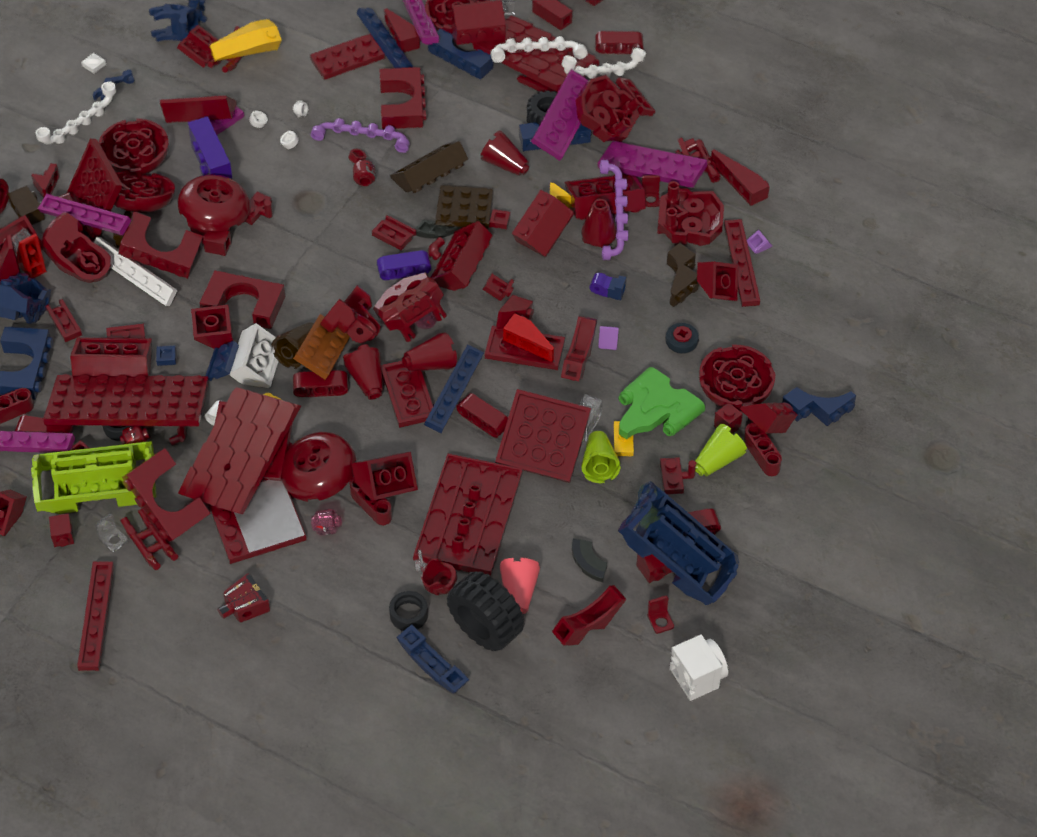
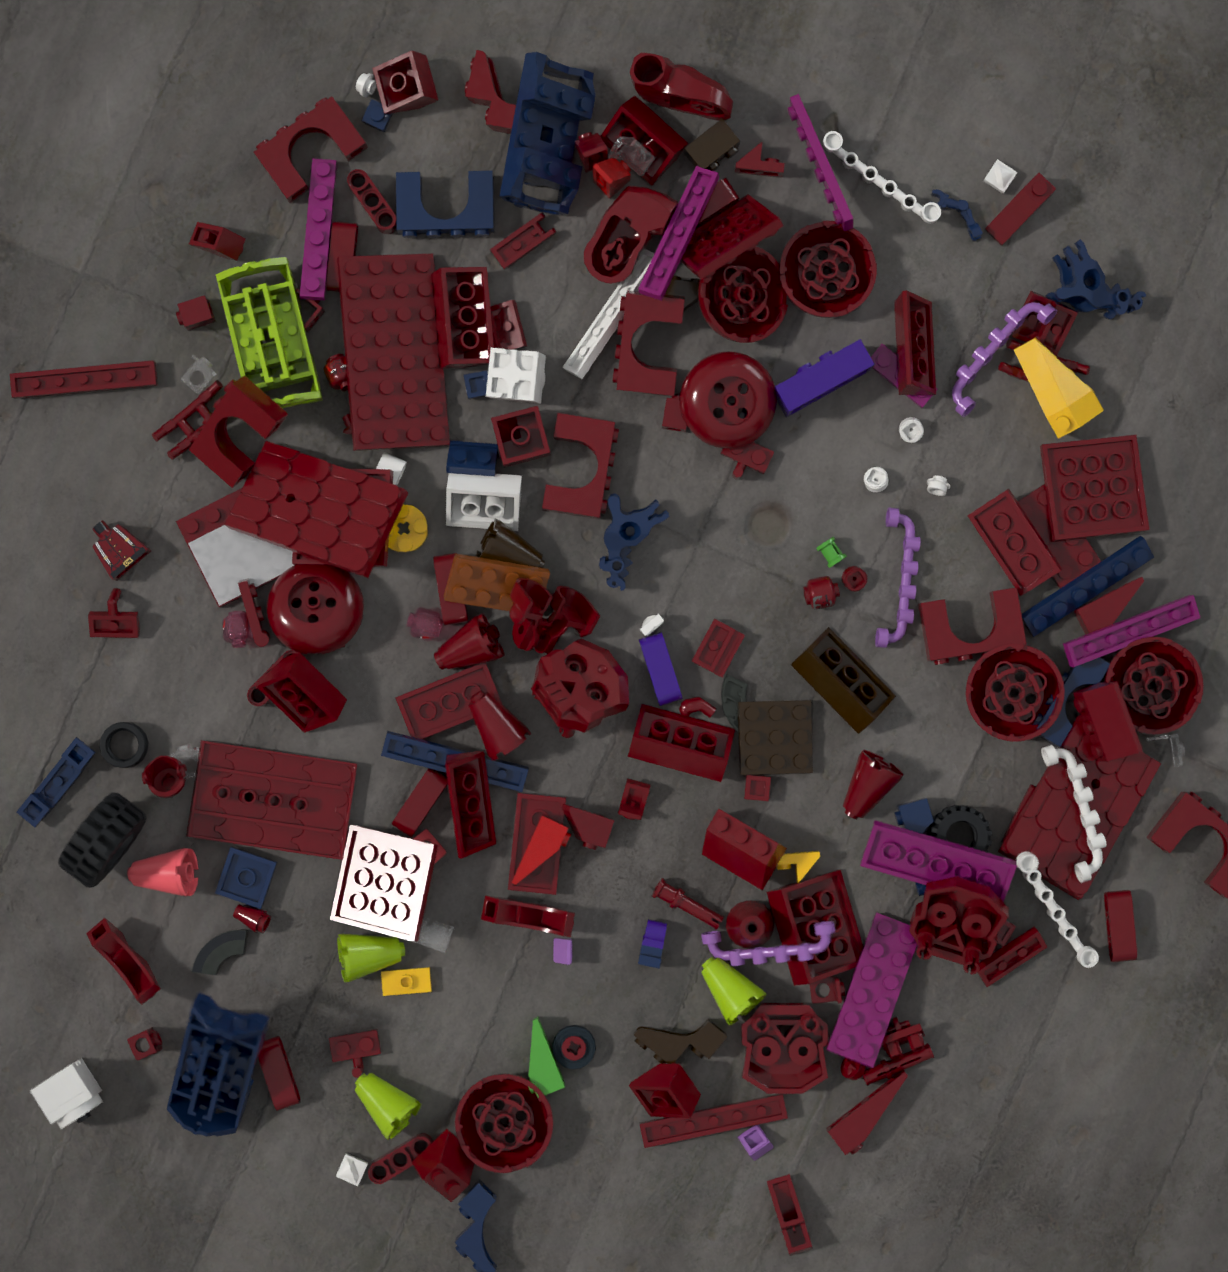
camera: 90 degrees right, 35 degrees up
(55, 142) = (824, 171): none -> magenta plate
(117, 51) = (1020, 208): none -> dark red slope
(165, 320) = (516, 375): none -> white piece
(214, 76) = (999, 338): none -> medium lavender bar
(296, 273) = (625, 531): none -> dark blue animal
(305, 608) = (113, 623): none -> dark red plate
(307, 508) = (254, 613): none -> dark red plate
(319, 30) = (1094, 487): none -> dark red plate
(336, 166) = (831, 552): none -> bright green bush
(344, 401) = (424, 624): none -> clear pink head
(347, 70) = (1014, 542): none -> dark red plate
(370, 267) = (651, 624): none -> white tile
(460, 78) = (1001, 666): none -> dark red brick
(486, 381) = (470, 802): none -> dark red slope
(529, 534) = (246, 877): none -> dark blue plate
(564, 530) = (253, 918): none -> dark red cone
(576, 269) = (676, 898): none -> dark red pin
(646, 240) = (731, 989): none -> lime cone
(656, 403) = (455, 1018): bright green rock -> none
(687, 356) = (543, 1065): none -> bright green slope
(707, 182) = (851, 1069): none -> dark red tile
(729, 416) = (441, 1113): dark red brick -> none
(770, 485) = (352, 1169): none -> white tile
(813, 225) = (789, 1215): none -> dark red slope

